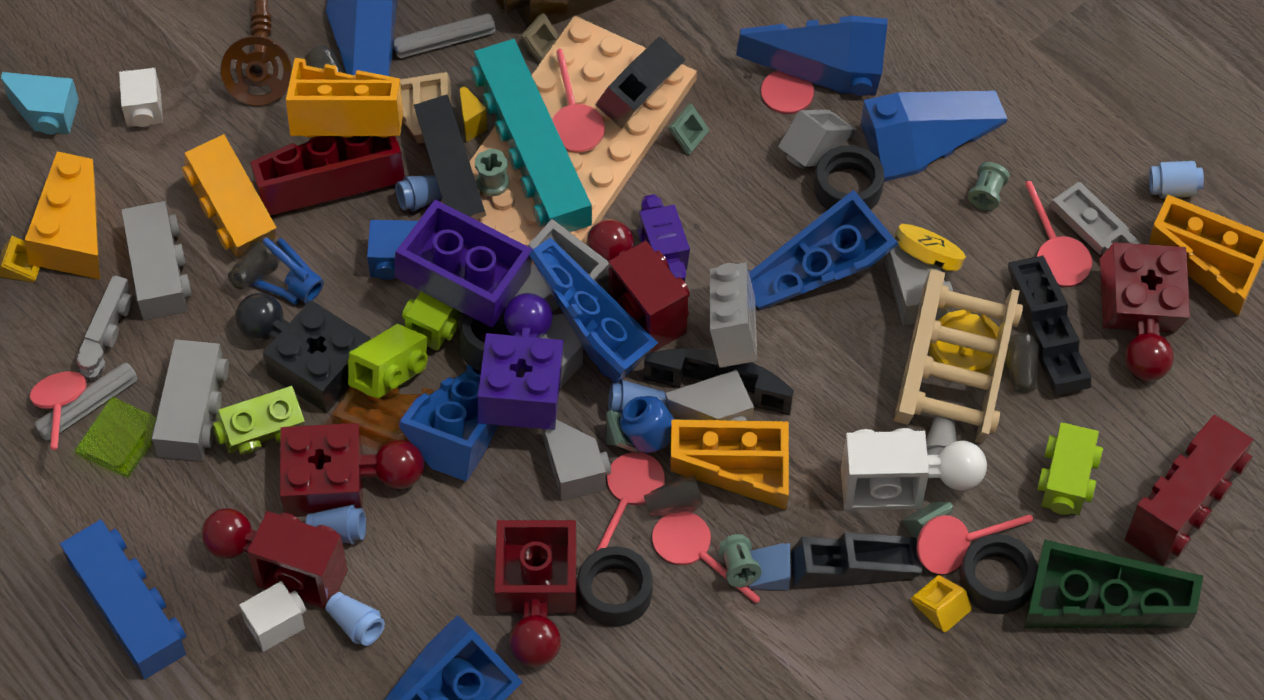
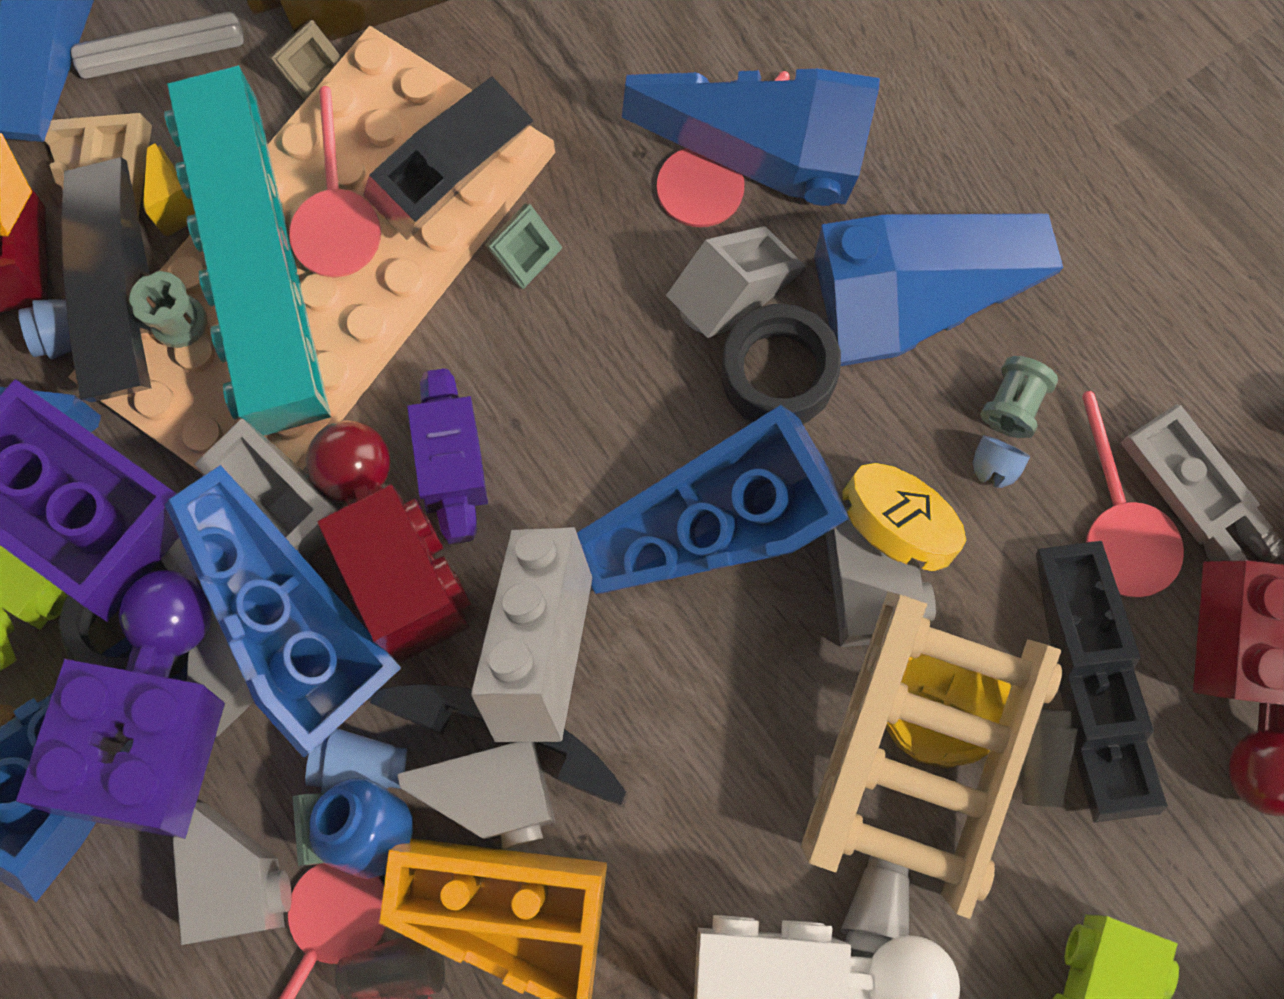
camera: 10 degrees right, 15 degrees up
(981, 218) = (998, 457): none -> medium blue hinge

